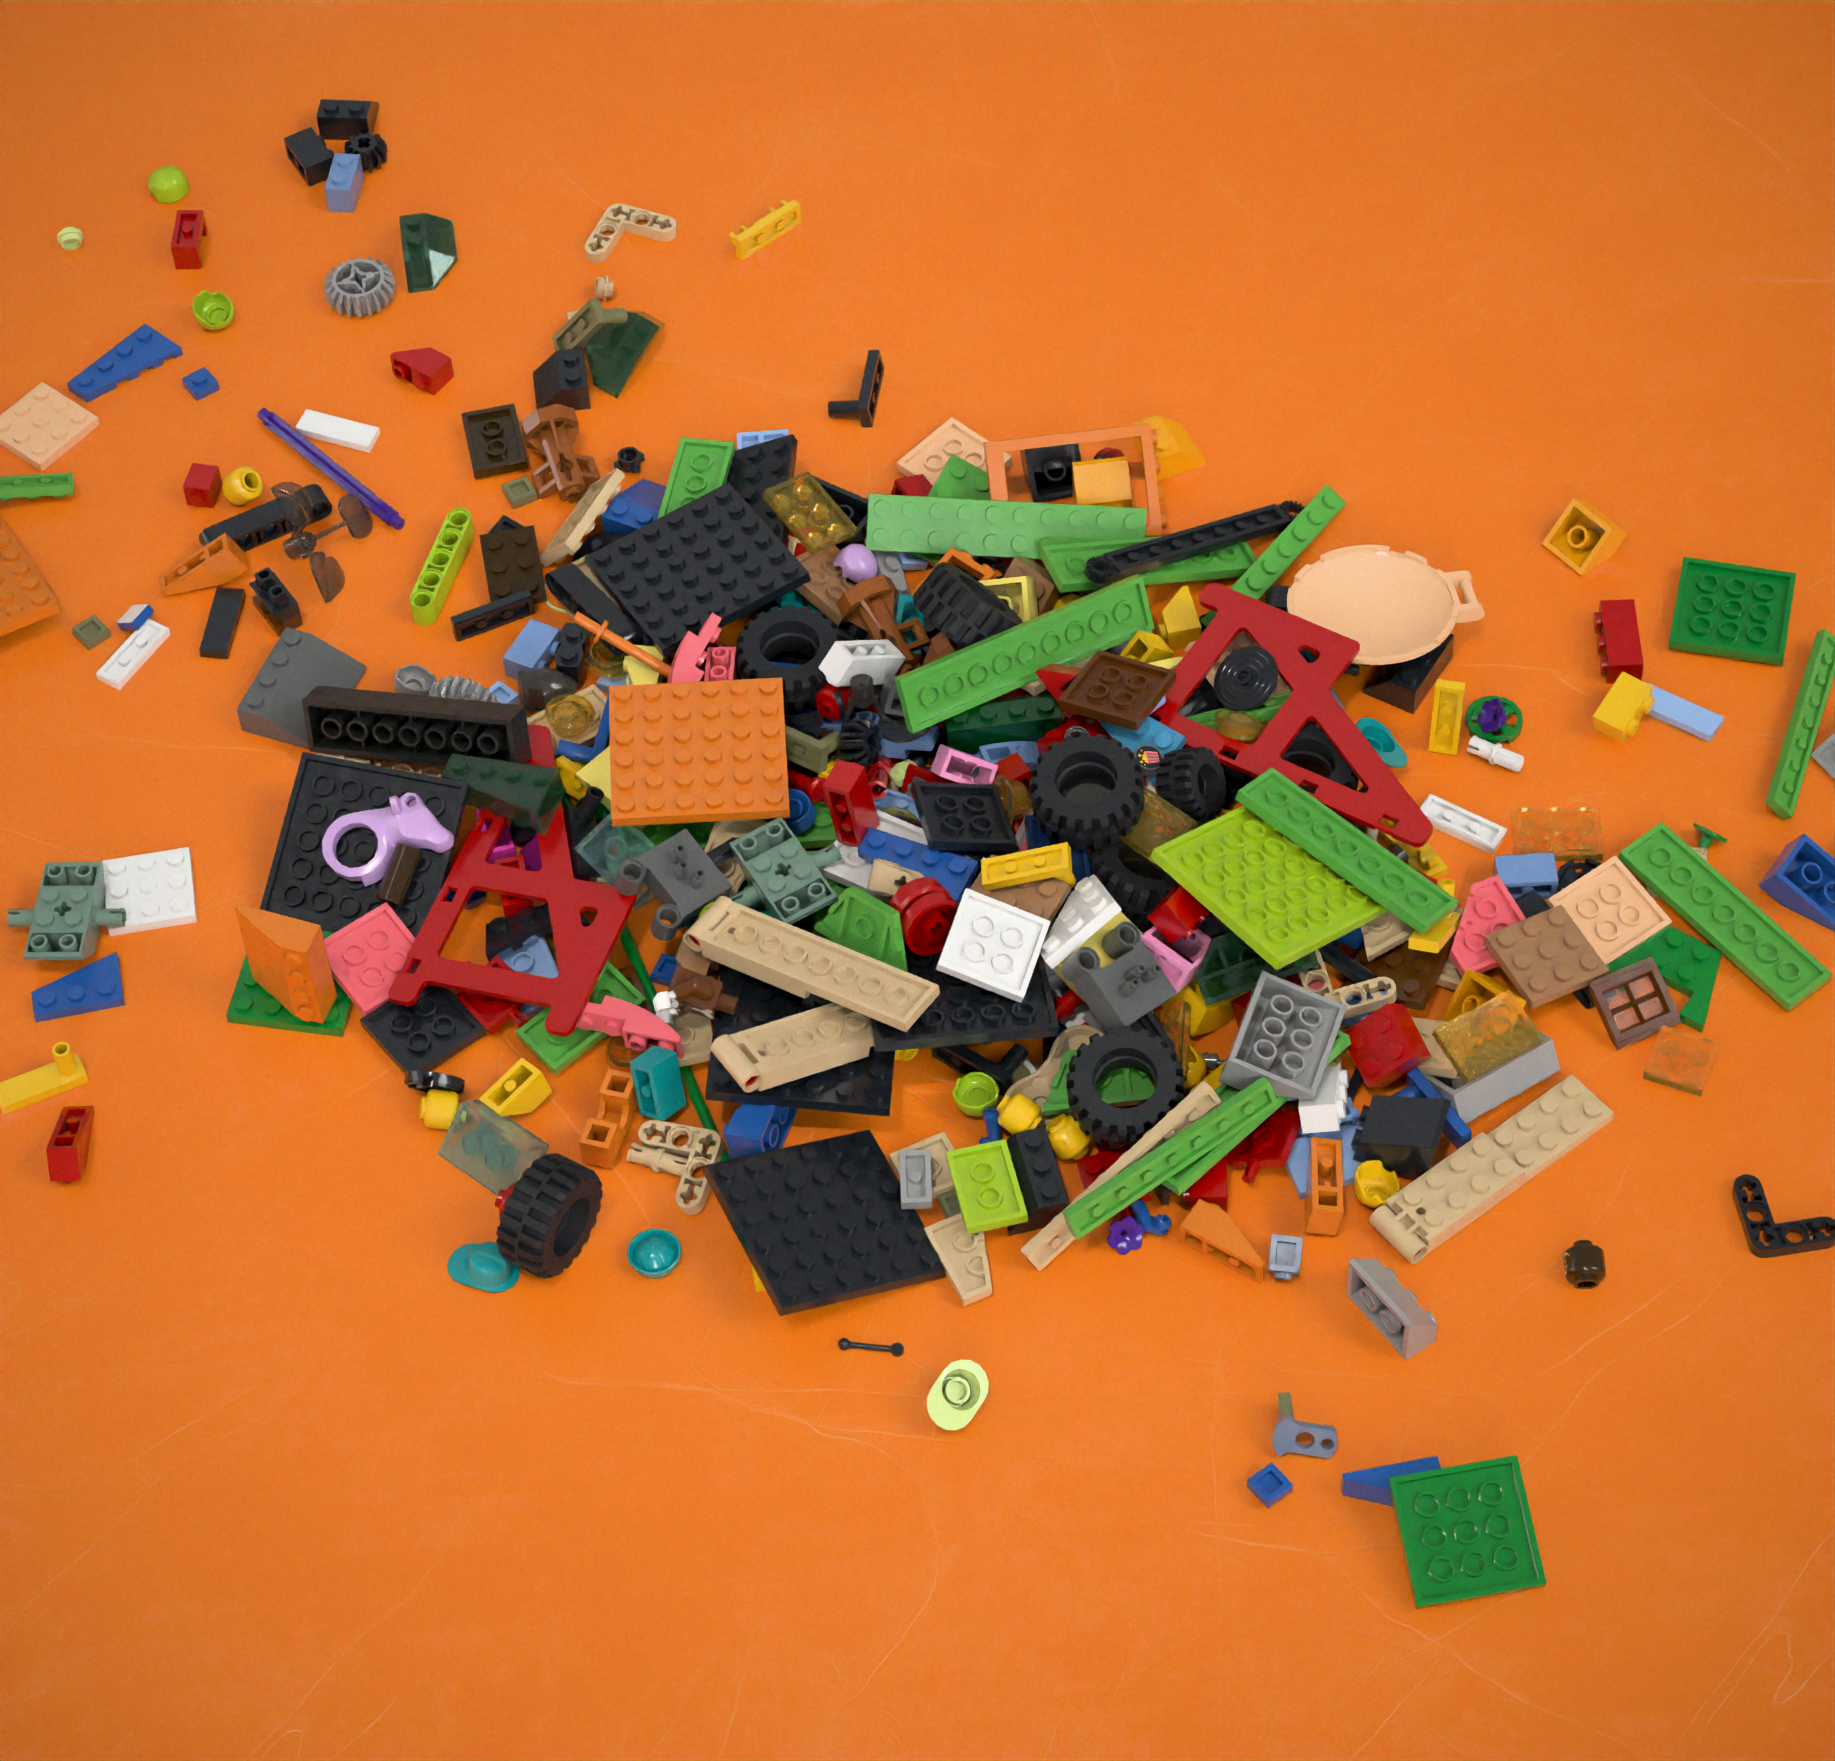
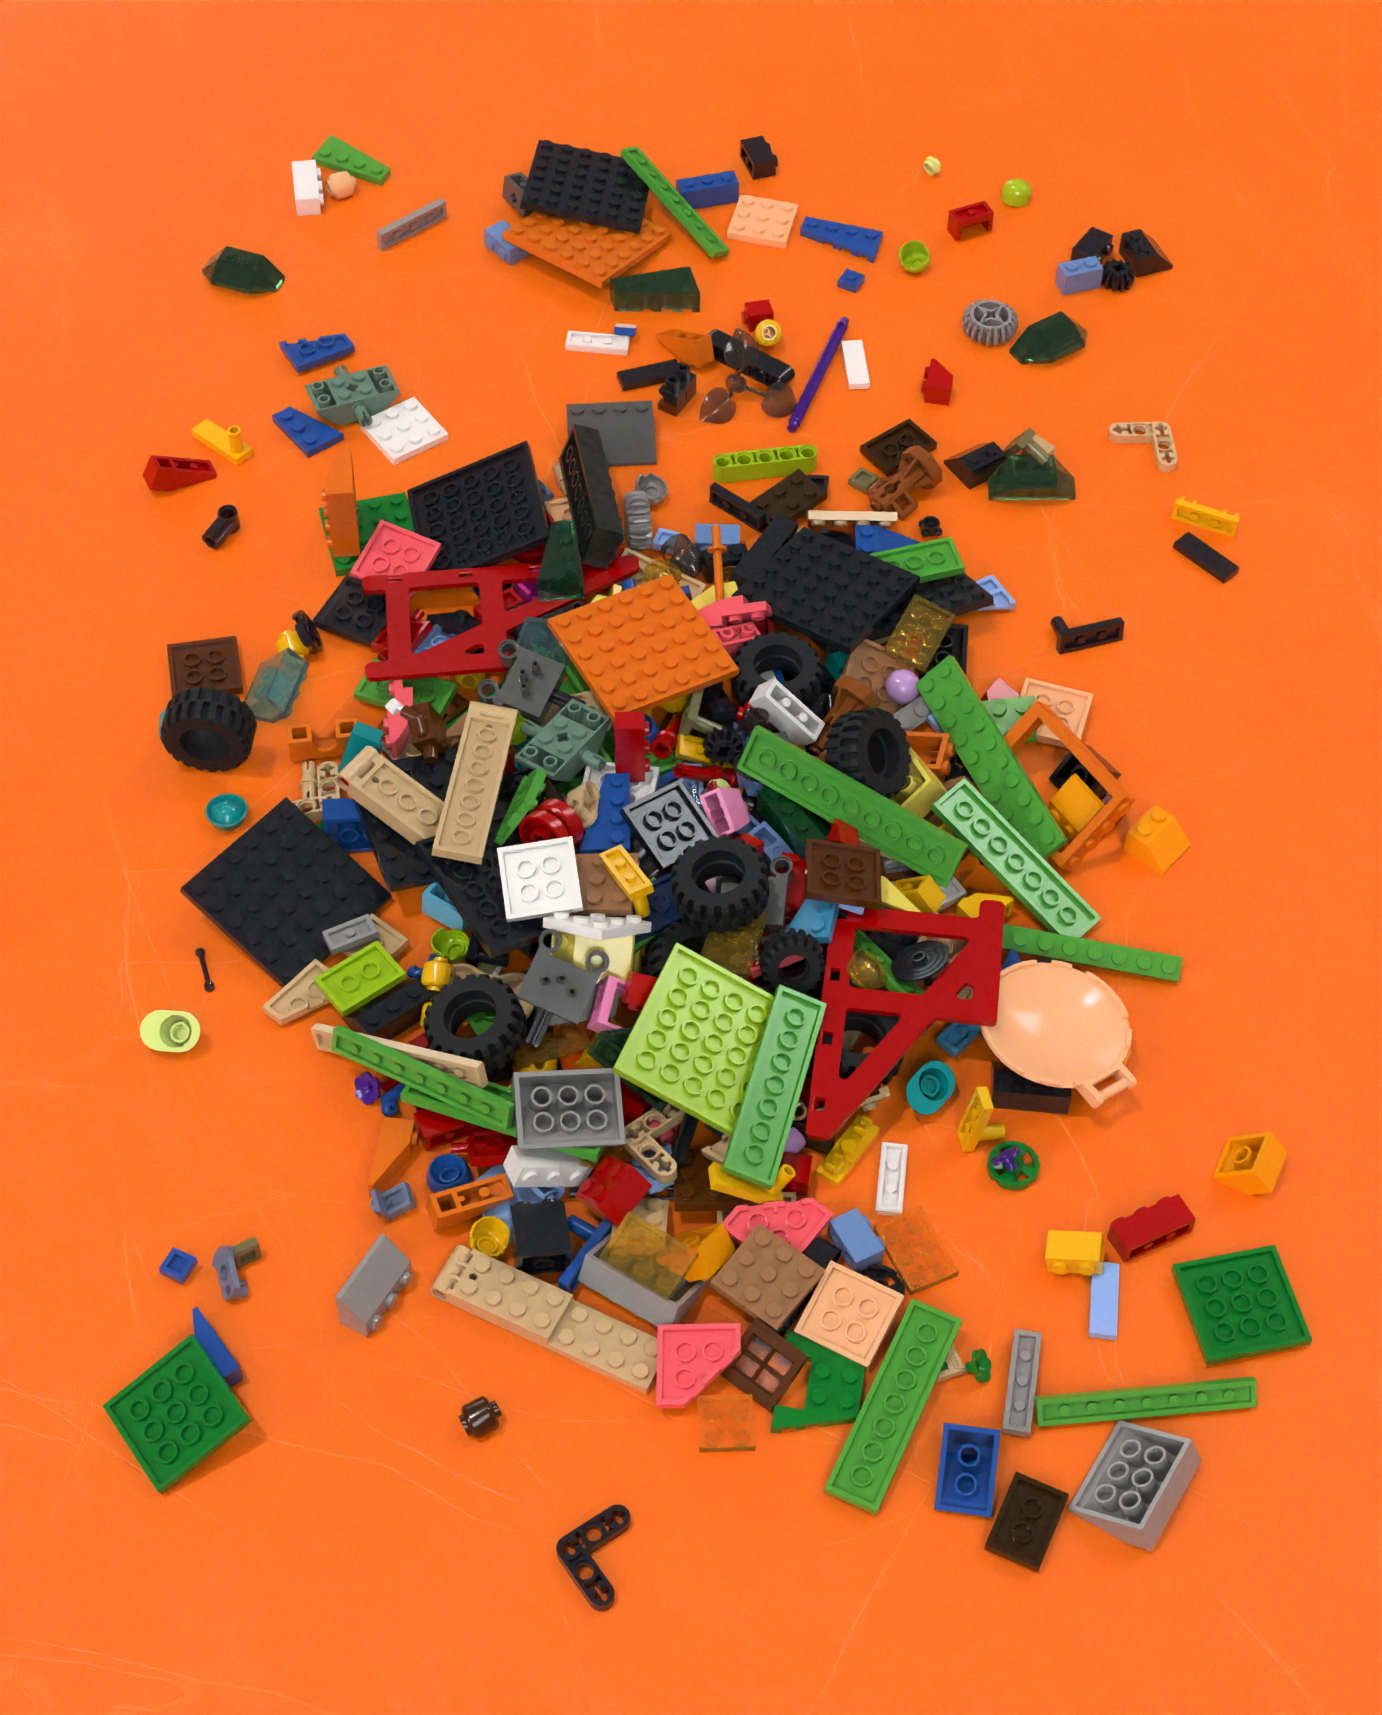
camera: 60 degrees right, 0 degrees up
(91, 632) = (603, 315): olive tile -> none
(96, 561) = (656, 291): none -> wedge
(196, 1123) = (222, 527): none -> black piece
(398, 875) = (462, 538): dark brown axle -> none
(403, 822) = (497, 518): lavender animal -> none
(417, 1210) = (206, 665): none -> reddish brown plate
(517, 1090) = (322, 679): yellow slope -> none
(603, 288) = (1083, 449): tan plate -> none
(817, 254) = (1206, 557): none -> black tile
(923, 1076) = (439, 907): none -> medium azure brick
(1148, 758) = (792, 919): tile -> none
(1191, 542) = (1049, 882): black plate -> none
(1273, 1199) = (447, 1172): none -> blue hat
(1495, 753) = (976, 1176): white axle -> none
(1606, 1056) = (692, 1358): none -> coral plate
(1741, 809) = (1021, 1383): none -> light grey plate

